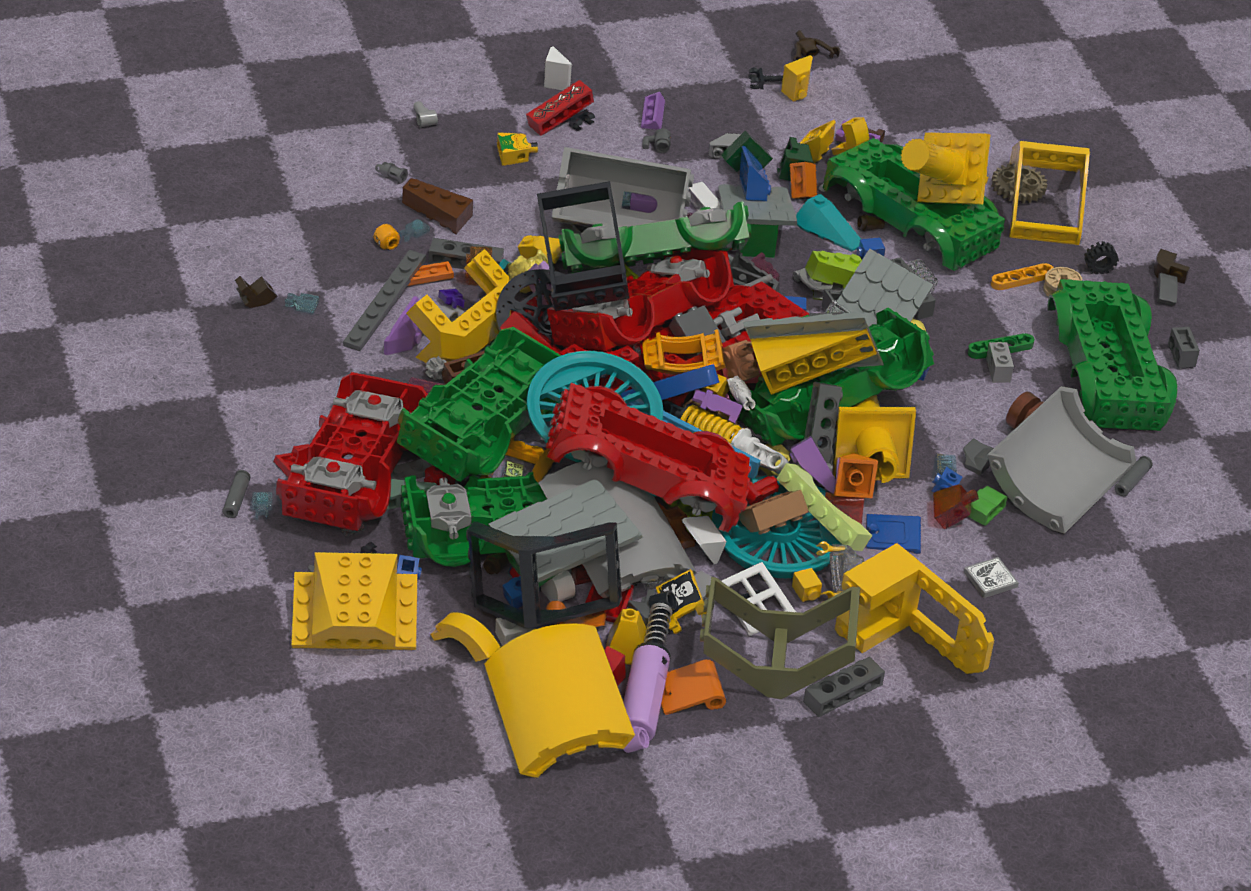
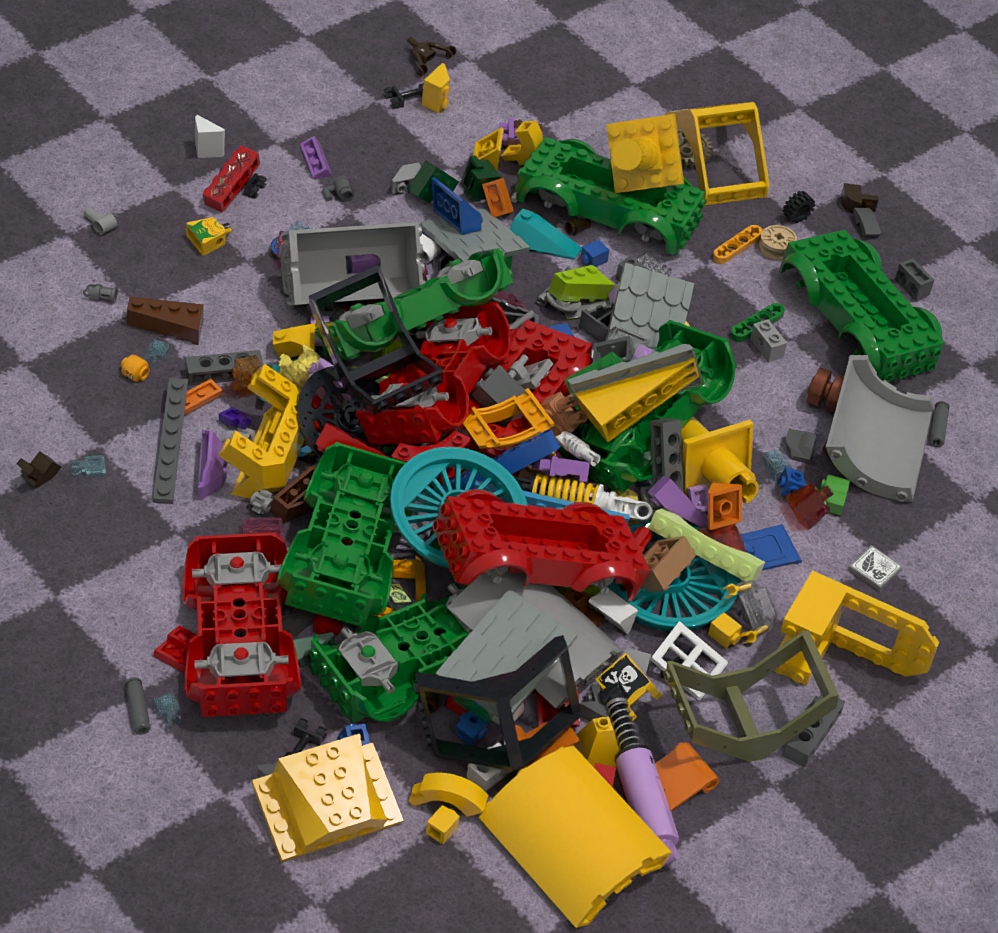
camera: 25 degrees left, 5 degrees up
(448, 659) = (442, 824): none -> yellow brick

